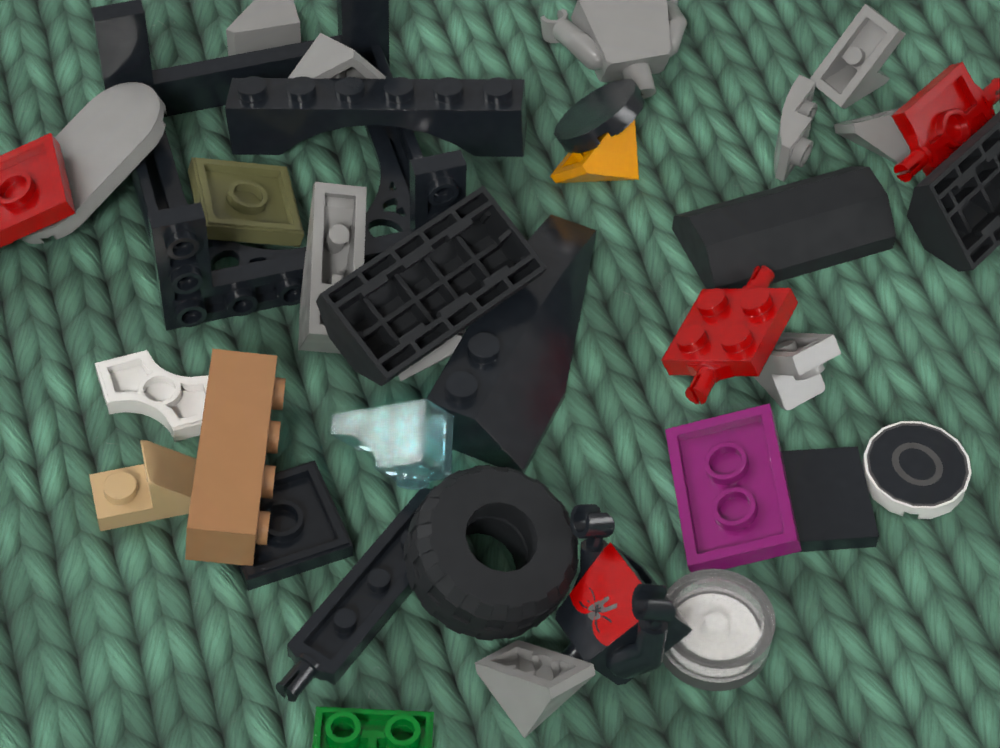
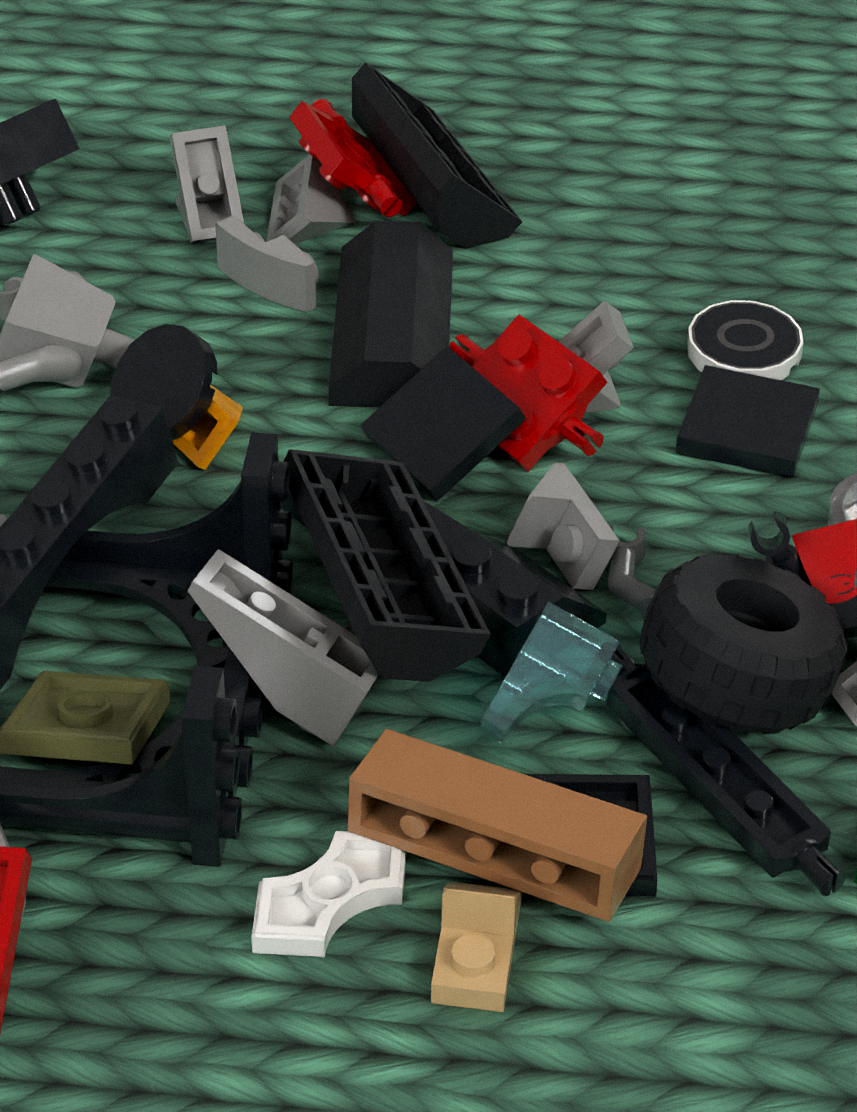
camera: 65 degrees left, 10 degrees down
(584, 463) = (622, 570): none -> dark grey arm
(591, 394) = (566, 525): none -> light grey slope
(664, 294) = (443, 422): none -> black tile
(732, 490) = (725, 457): magenta plate -> none

